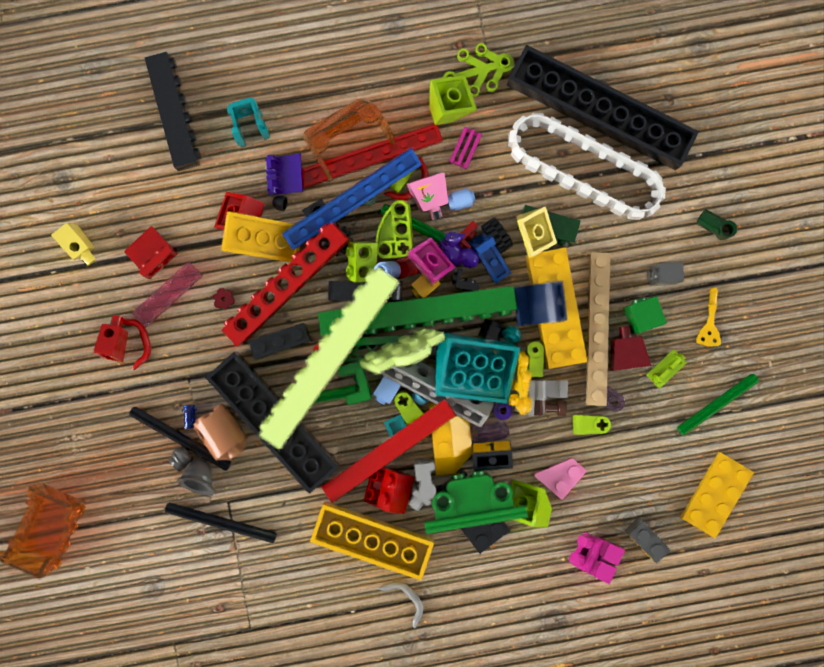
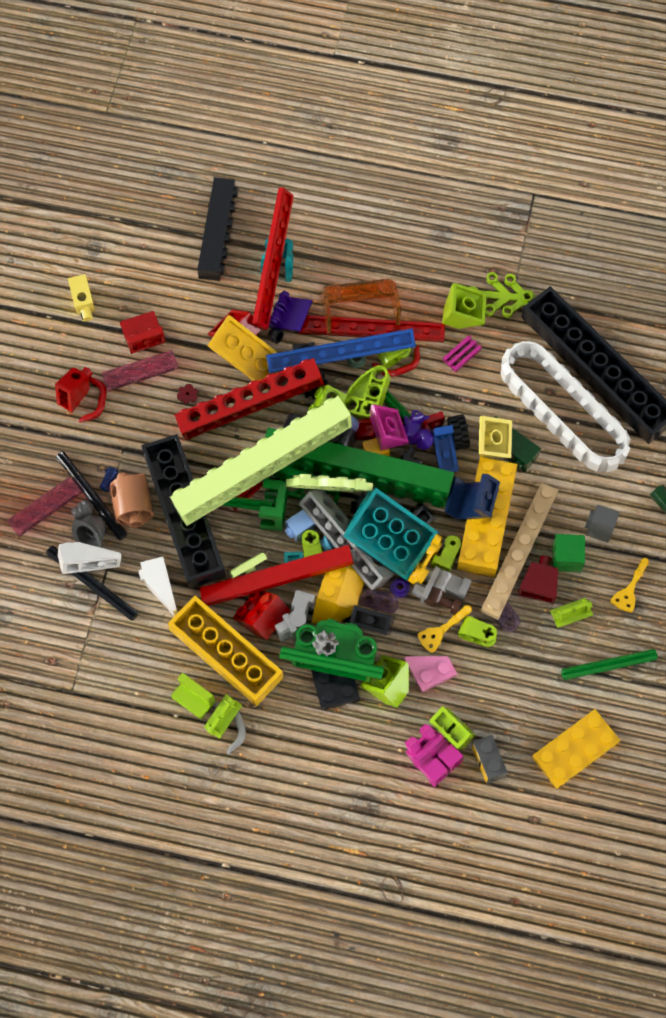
camera: 20 degrees right, 20 degrees down
(142, 469) = (44, 506): none -> clear pink plate
(201, 507) = (83, 557): none -> white slope
(243, 126) = (273, 259): none -> red tile
(280, 341) = (219, 445): black brick -> none
(281, 498) = (157, 581): none -> white slope
(356, 448) = (248, 566): none -> yellowish green plate
(361, 591) = (193, 696): none -> lime panel
(395, 600) = (222, 716): none -> lime hinge
(430, 194) = (412, 376): bright pink torso -> none
(461, 199) = (439, 392): light blue brick -> none
(464, 507) = (325, 643): none -> light grey gear
(511, 334) = (437, 522): teal plate -> none
(556, 438) = (439, 631): none -> yellow piece
(605, 526) = (452, 728): none -> lime brick

